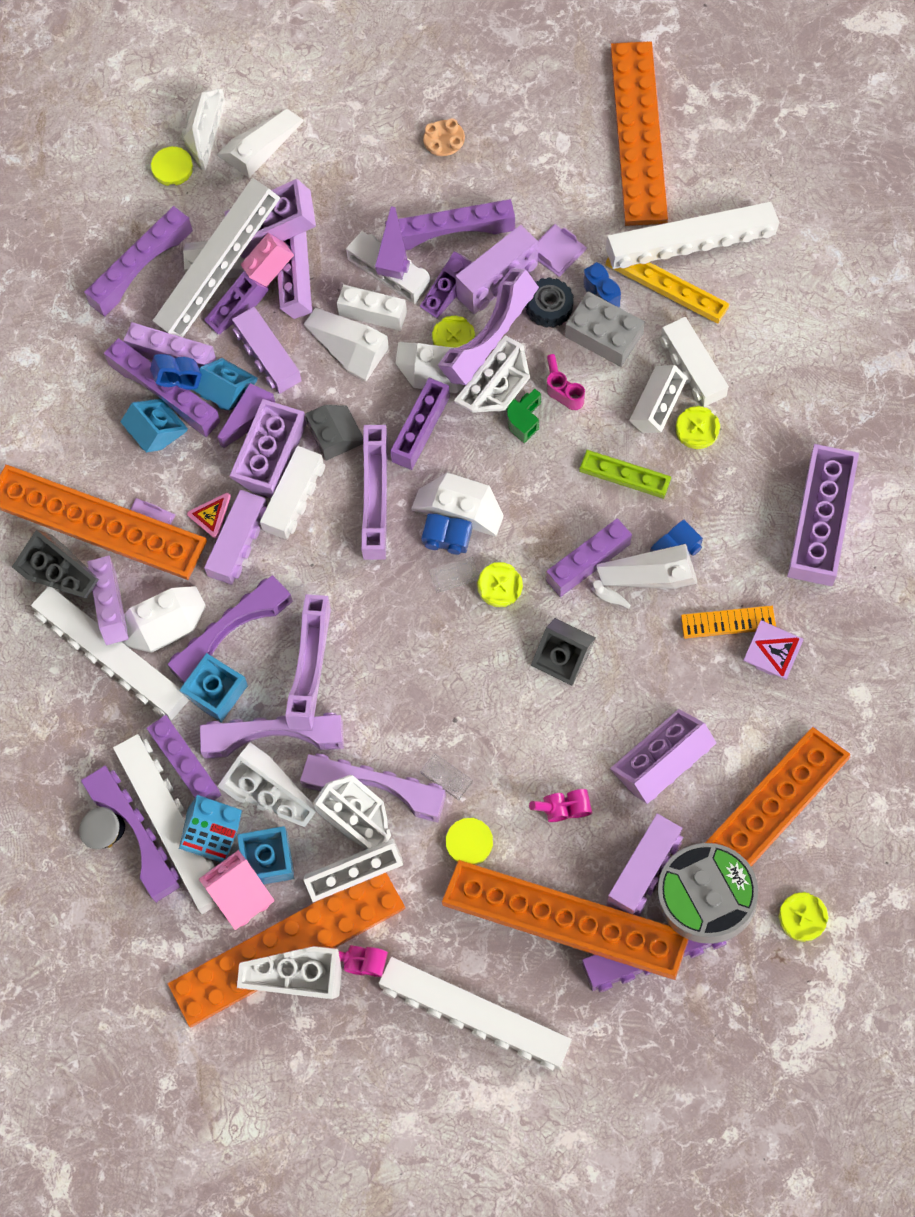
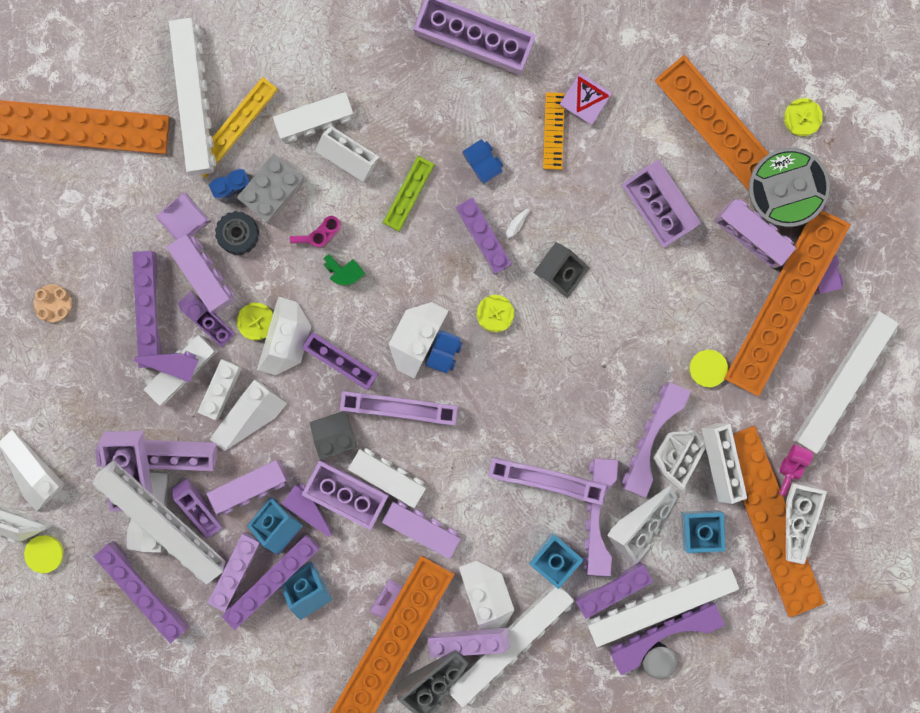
camera: 90 degrees left, 20 degrees up
(175, 371) = (266, 568): blue brick -> none
(210, 828) = (677, 574): dark azure slope -> none
(211, 514) = (398, 548): piece -> none
(237, 890) = (730, 558): bright pink panel -> none
(265, 601) = (483, 510): medium lavender arch -> none
(267, 259) = (165, 477): bright pink brick -> none
(497, 379) = (311, 289): white wedge -> none
(513, 295) = (235, 264): lavender arch -> none
(562, 808) = (691, 292): dark pink beam -> none
(653, 569) = (506, 176): white wedge -> none
(697, 427) = (374, 125): neon yellow tile -> none

